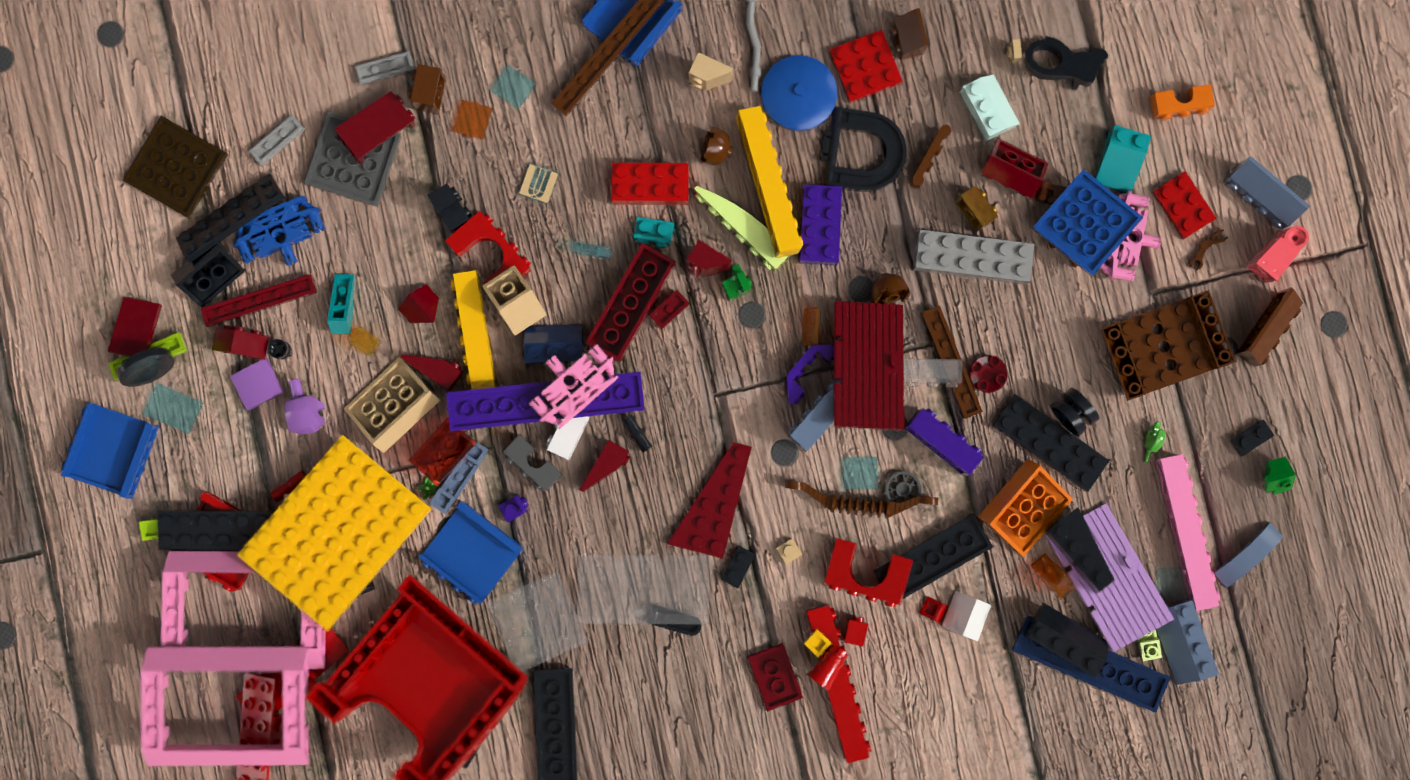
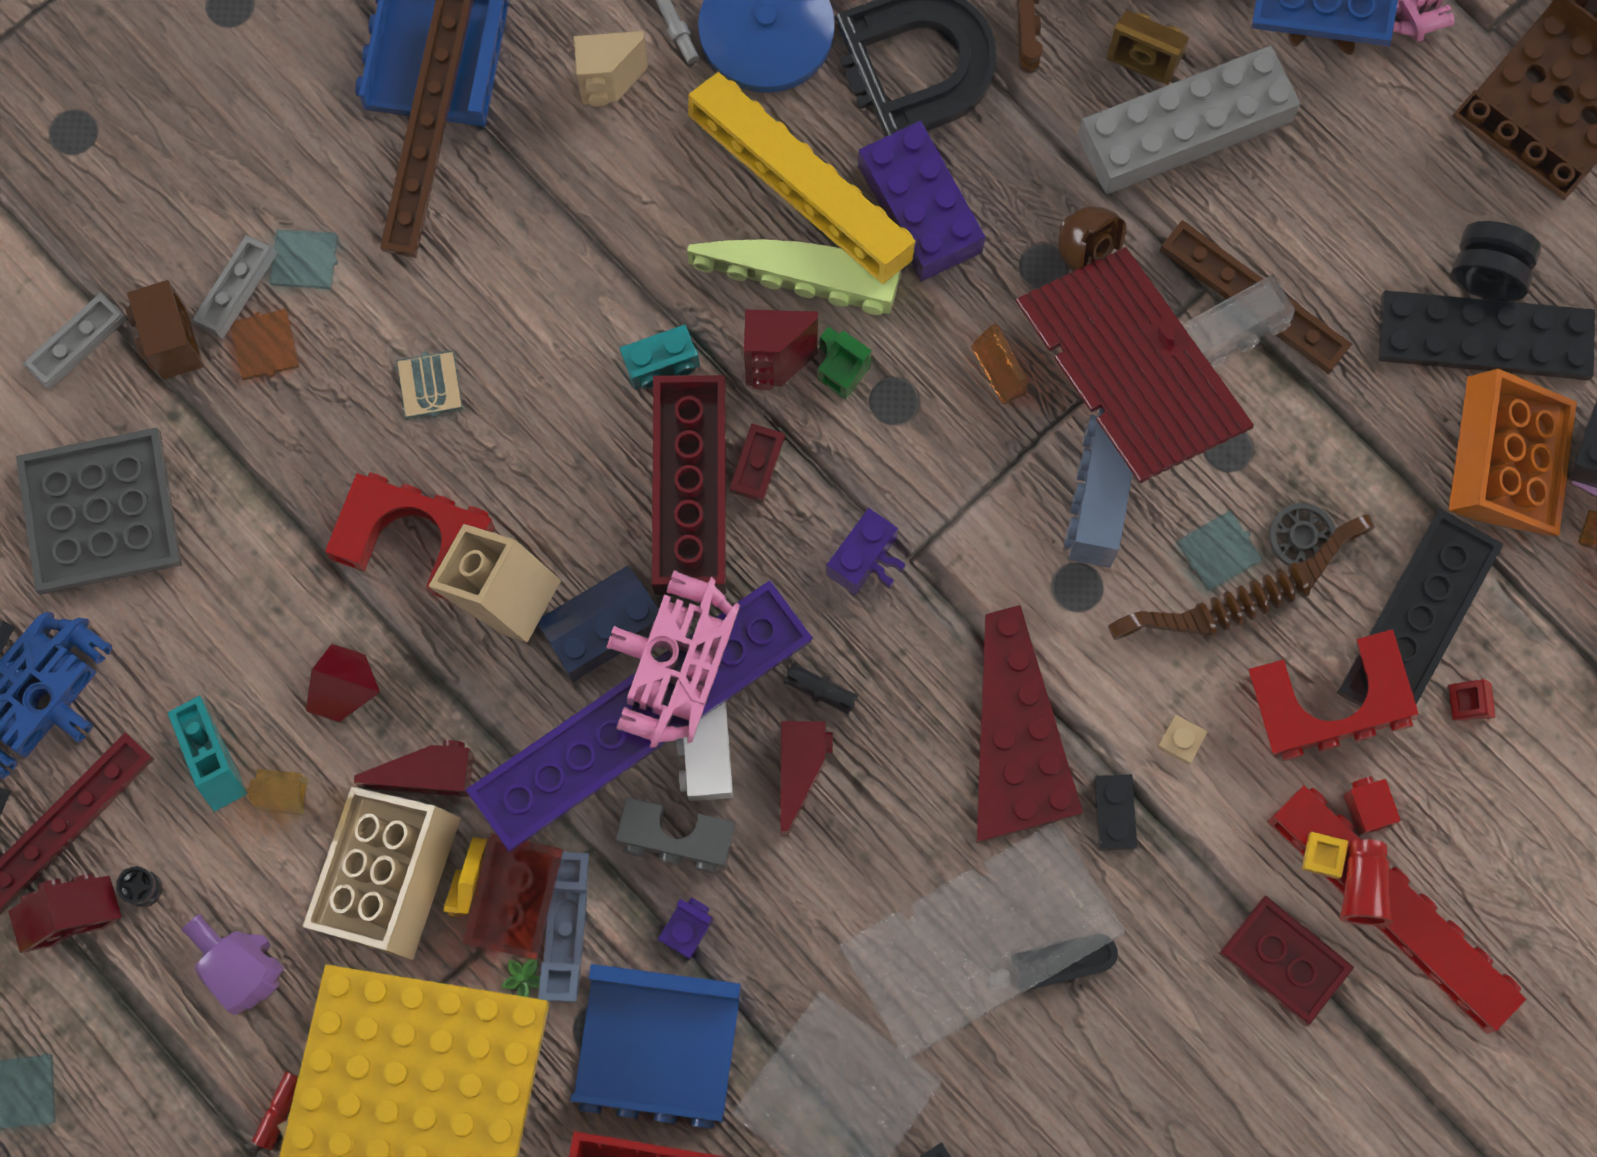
camera: 25 degrees left, 10 degrees down
(257, 384) = (130, 968): medium lavender slope -> none
(374, 125) = (105, 435): dark red panel -> none
(426, 430) = (465, 880): none -> yellow slope
(448, 205) = (297, 494): black brick -> none
(473, 83) = (234, 287): none -> light grey tile
(474, 330) = (453, 670): yellow brick -> none
(591, 250) = (577, 439): clear light blue piece -> none
(650, 183) = (612, 284): red brick -> none
(692, 381) = (863, 552): none -> dark purple brick
(716, 147) = (684, 171): reddish brown cylinder -> none
(794, 391) = (1030, 474): dark purple slope -> none
(944, 442) = (1324, 420): dark purple brick -> none
(966, 615) = (1529, 679): white slope -> none
(988, 373) = (1323, 282): dark red dish -> none

